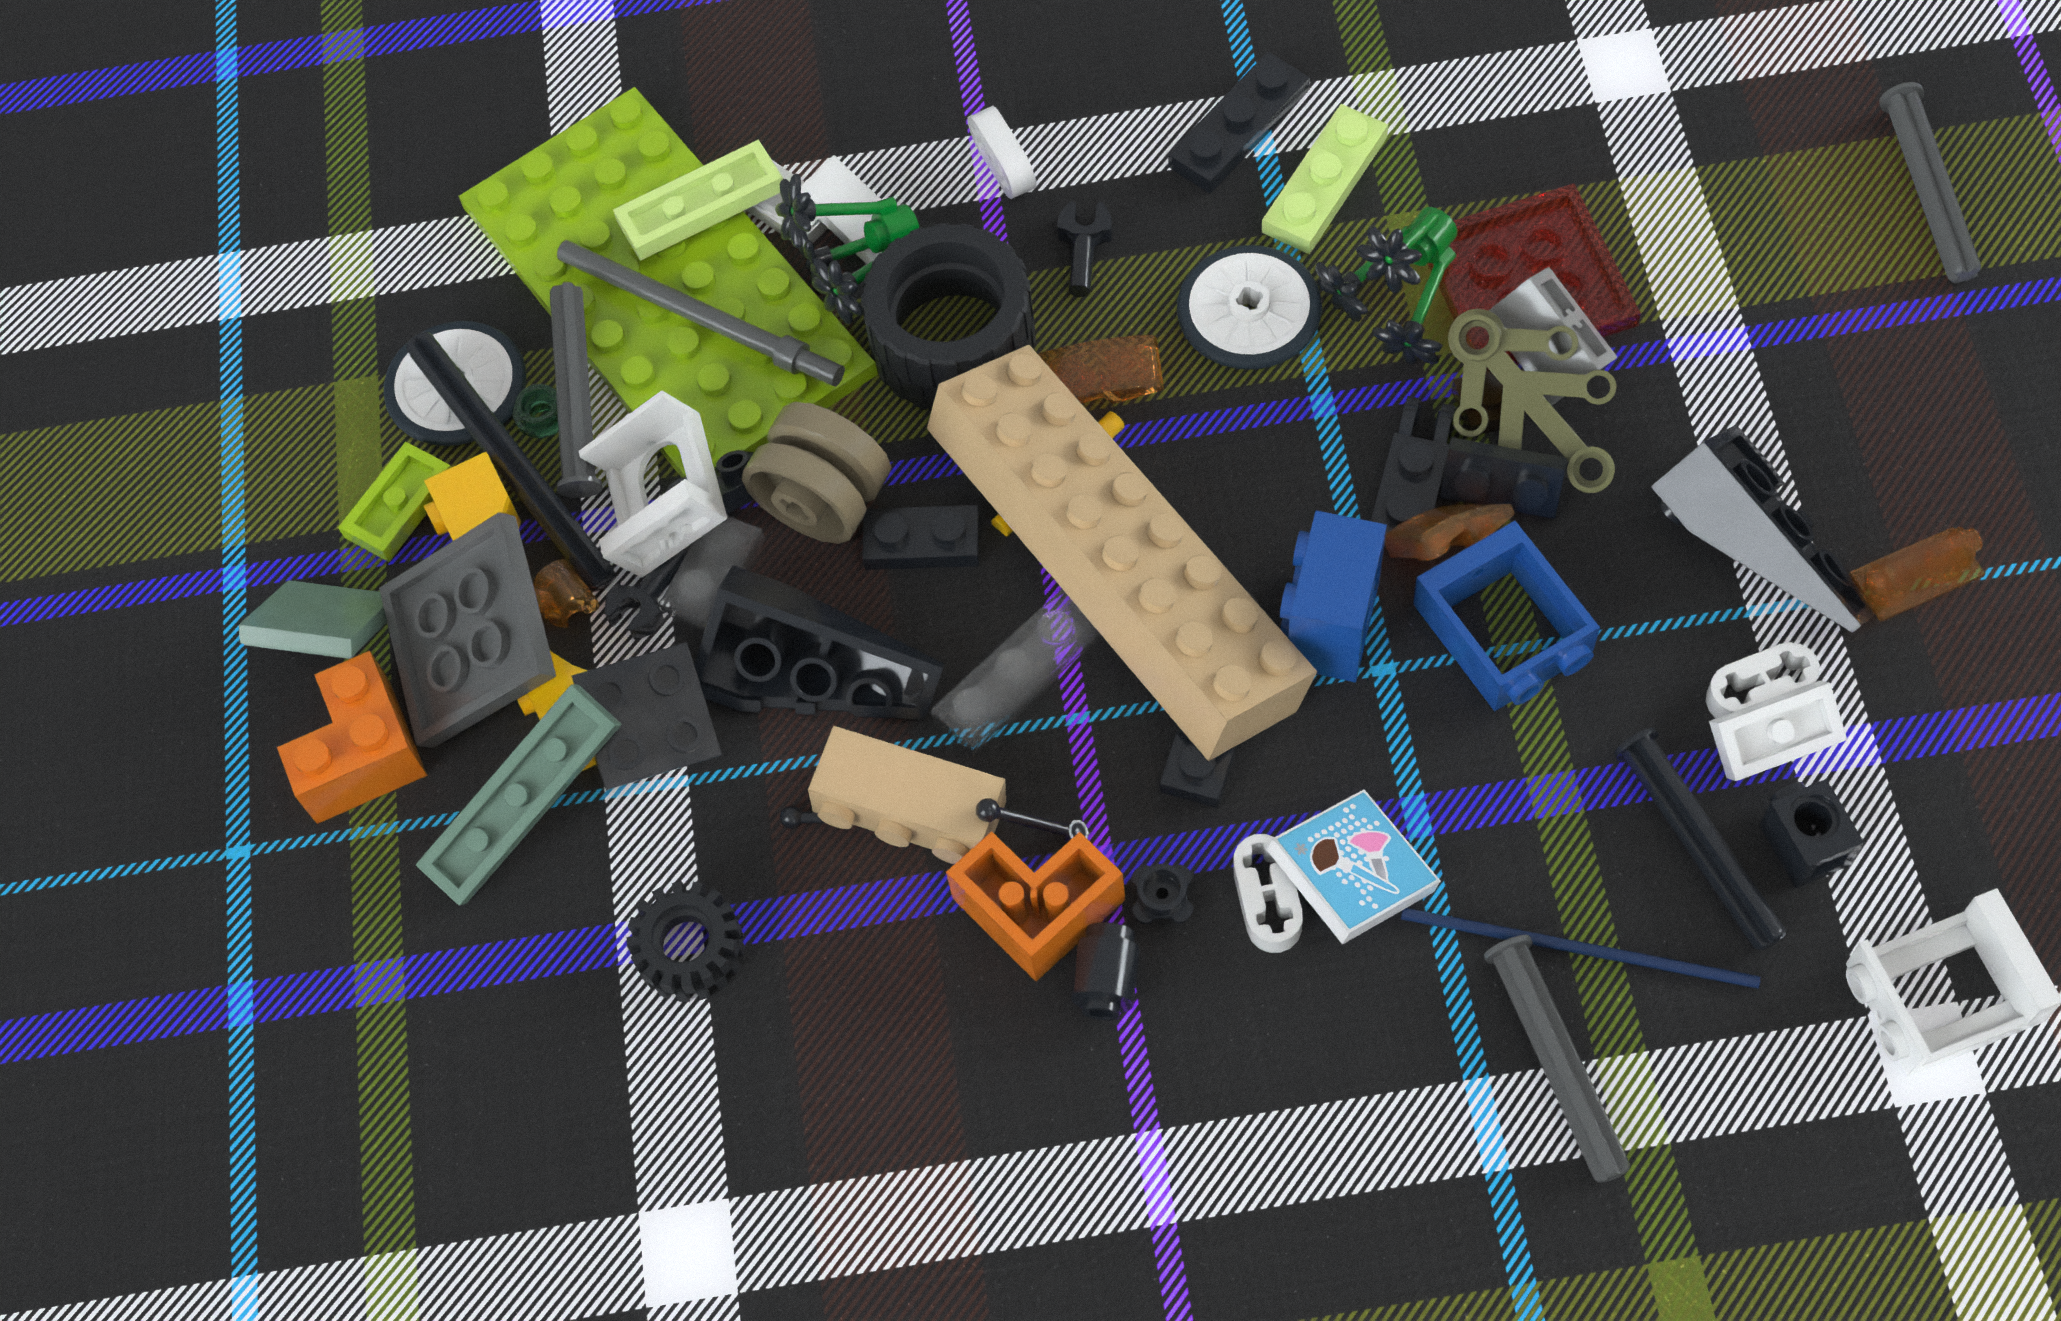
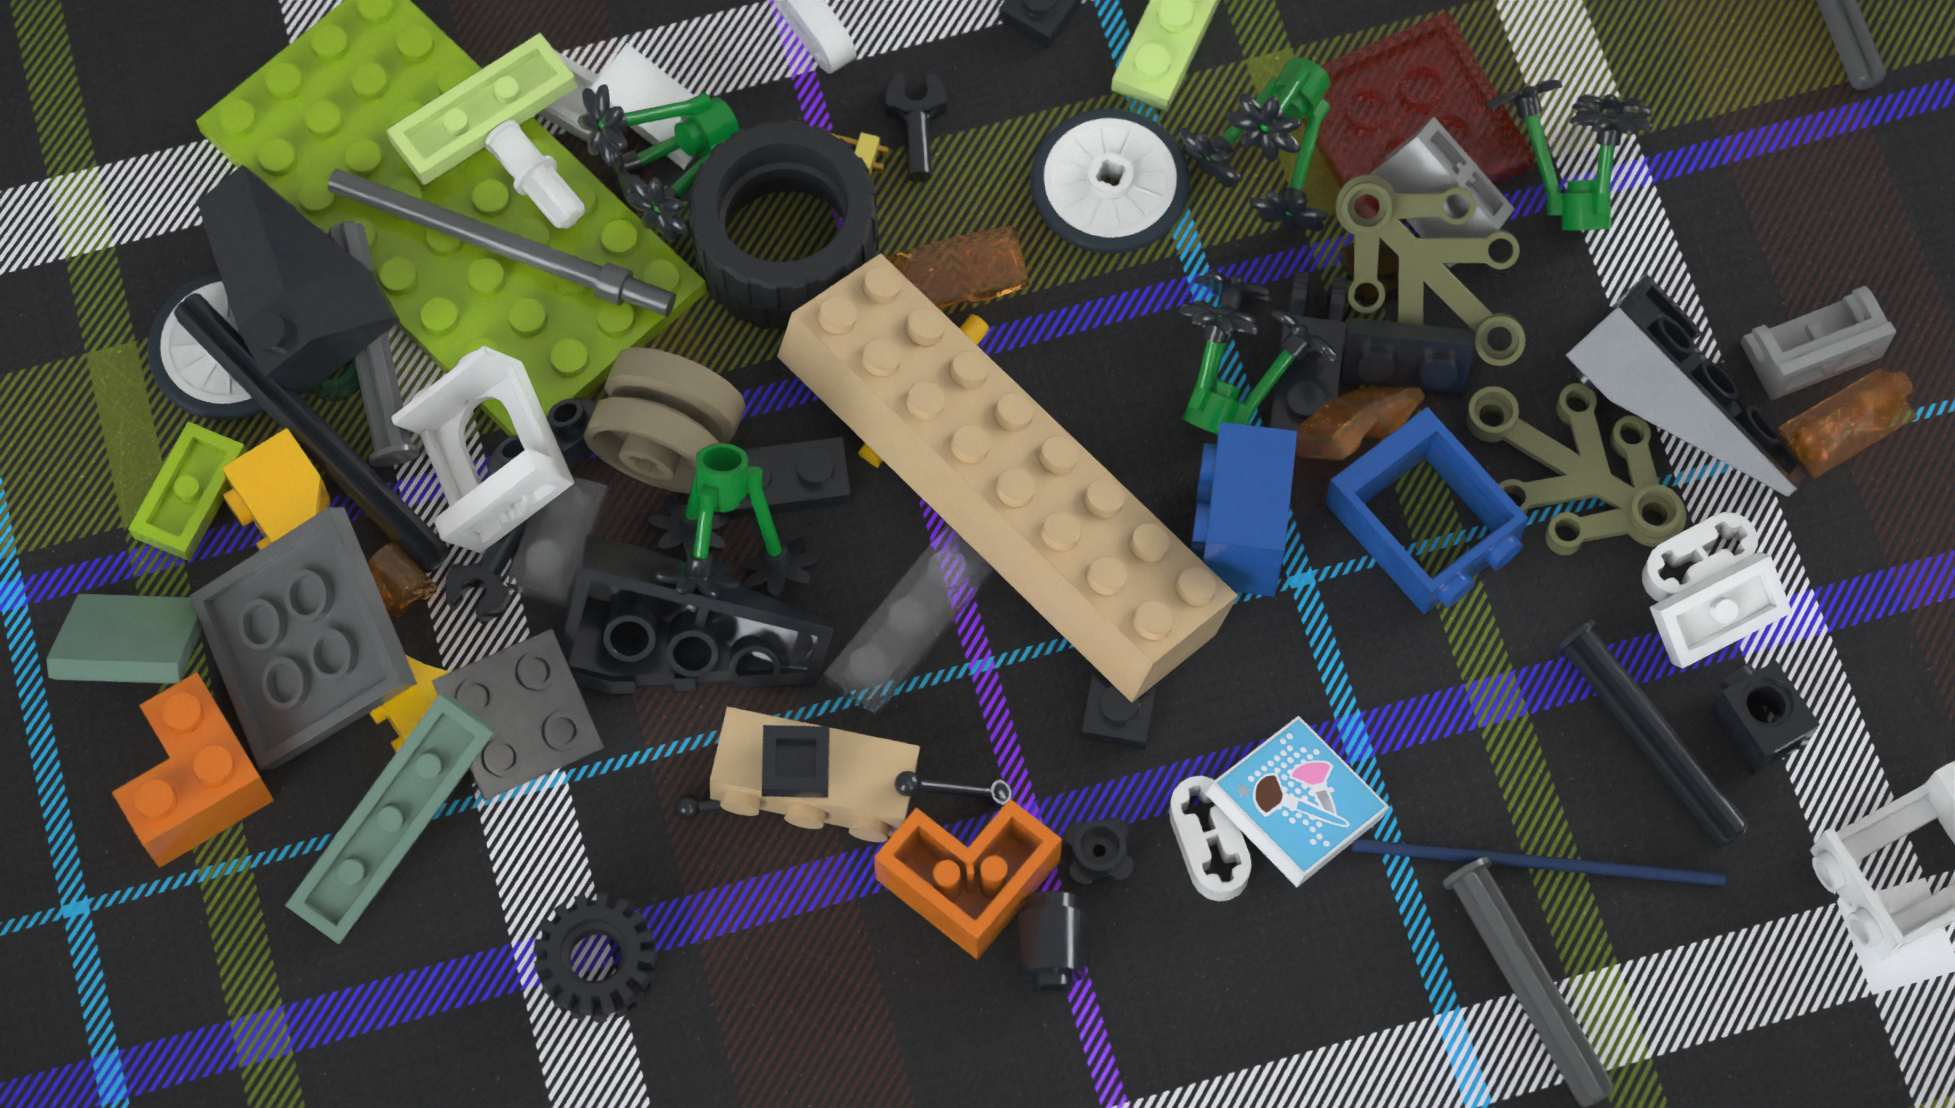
camera: 15 degrees left, 5 degrees up
(510, 334) = (289, 284): none -> black wedge
(736, 257) = (535, 174): none -> white axle
(852, 525) = (720, 486): none -> plant
(886, 778) = (795, 761): none -> black plate
(1036, 265) = (868, 148): none -> light yellow piece
(1328, 435) = (1216, 399): none -> plant
(1657, 597) = (1584, 472): none -> olive plant
(1686, 355) = (1586, 201): none -> plant
(1896, 501) = (1819, 344): none -> light grey hinge

